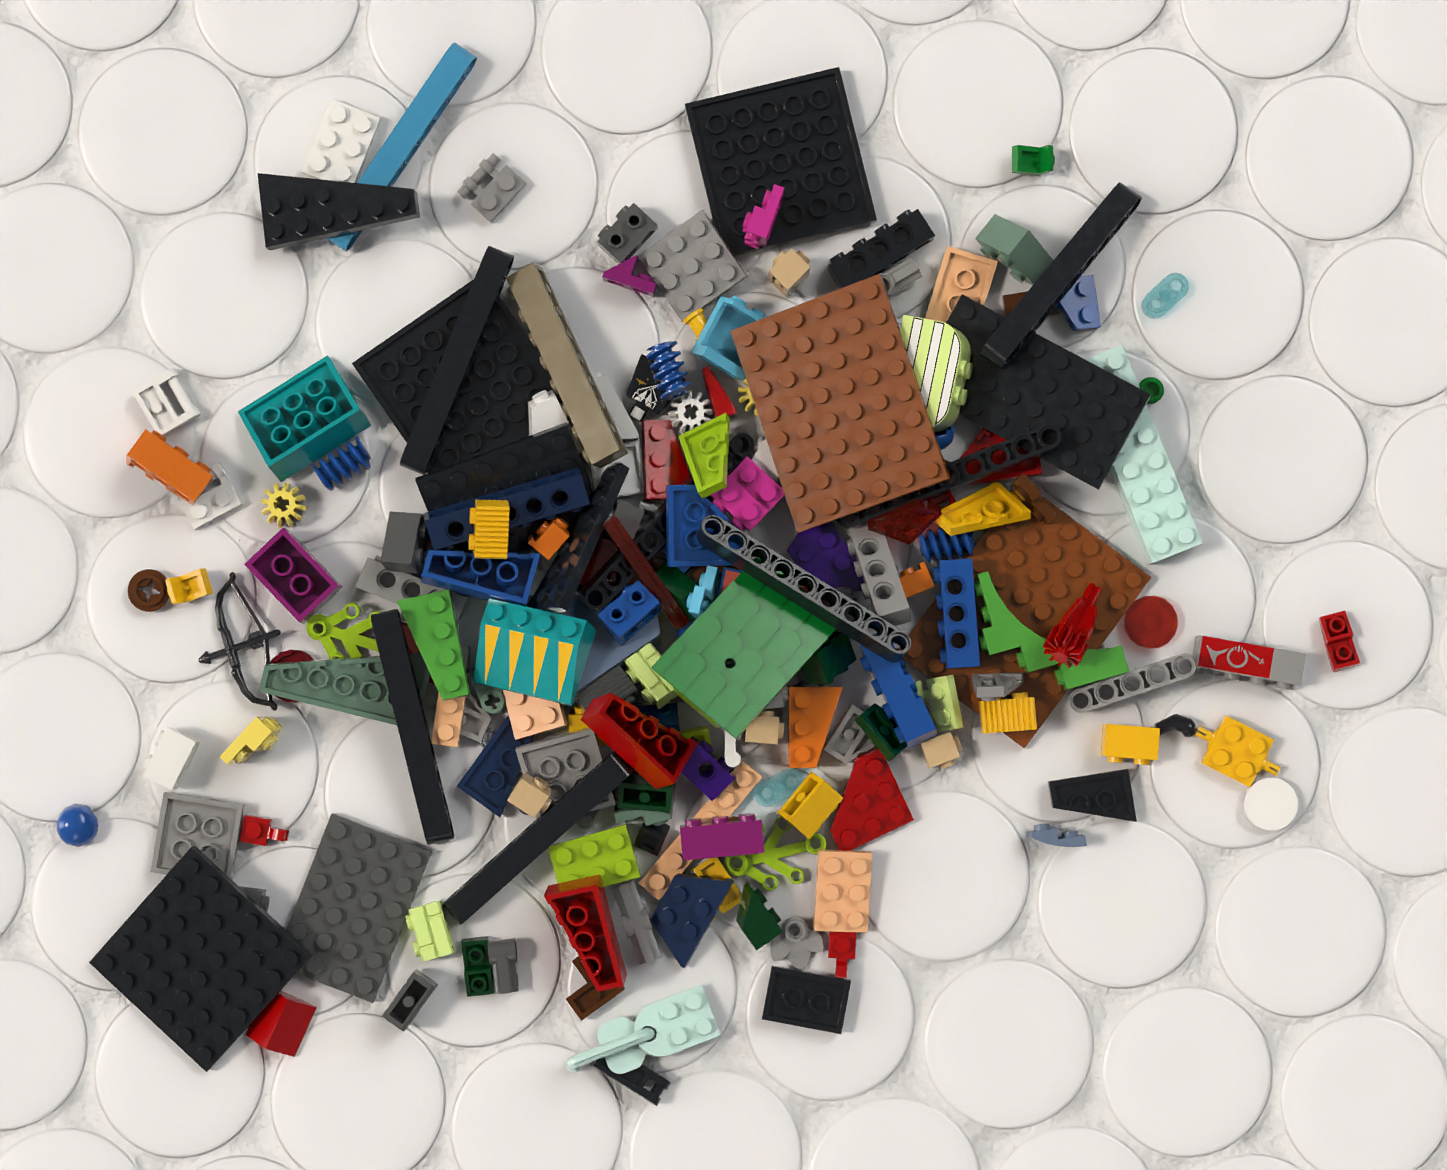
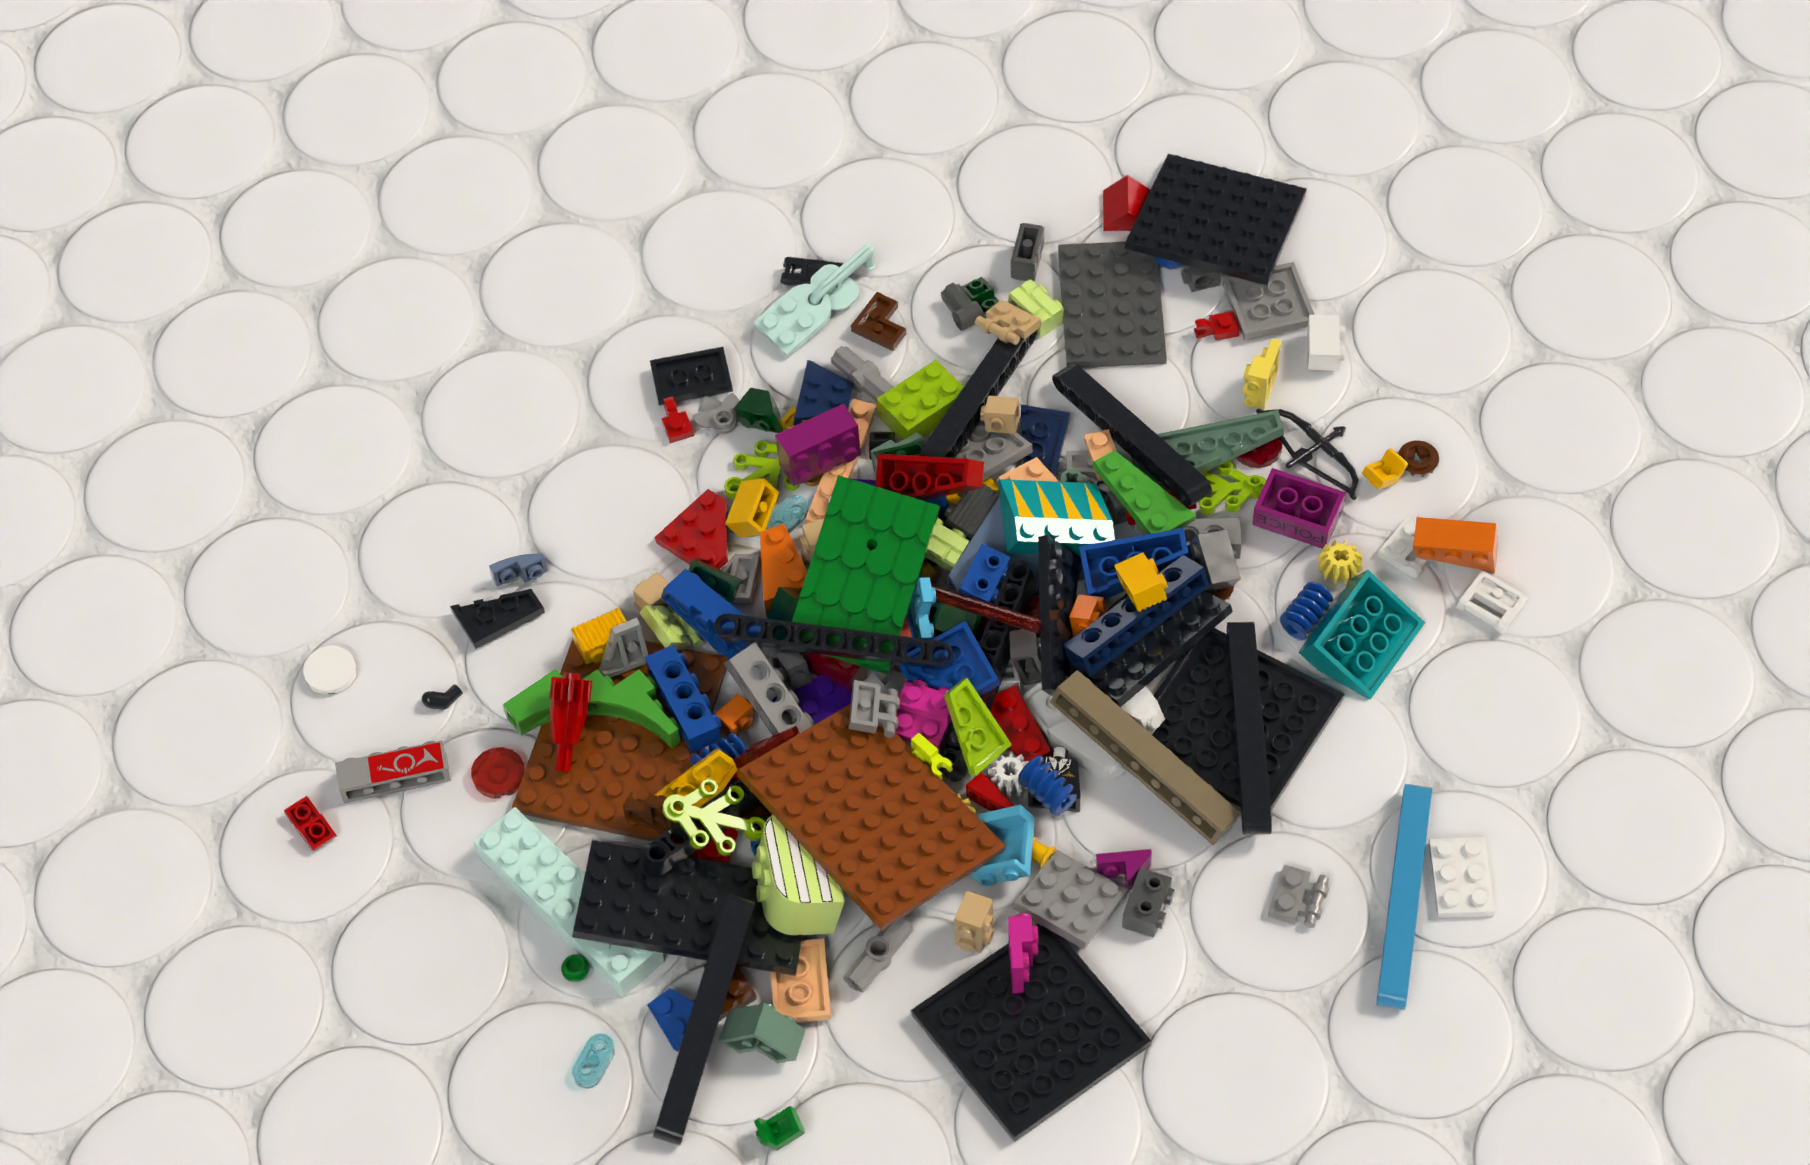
camera: 160 degrees right, 30 degrees down
(77, 825) = (1375, 274): blue hair -> none
(315, 209) = (1444, 803): black wing -> none
(464, 915) = (1008, 322): none -> tan plate
(587, 921) = (901, 341): red wedge -> none
(763, 452) = (929, 754): none -> neon yellow plate
(801, 509) = (865, 708): none -> light grey plate
(842, 890) = (695, 461): light nougat plate -> none
(908, 221) = (913, 947): black brick -> none
(986, 456) = (710, 817): none -> plant
(1122, 692) = (486, 709): light grey beam -> none
(1129, 742) = (480, 665): yellow brick -> none
(1237, 751) = (376, 699): yellow plate -> none

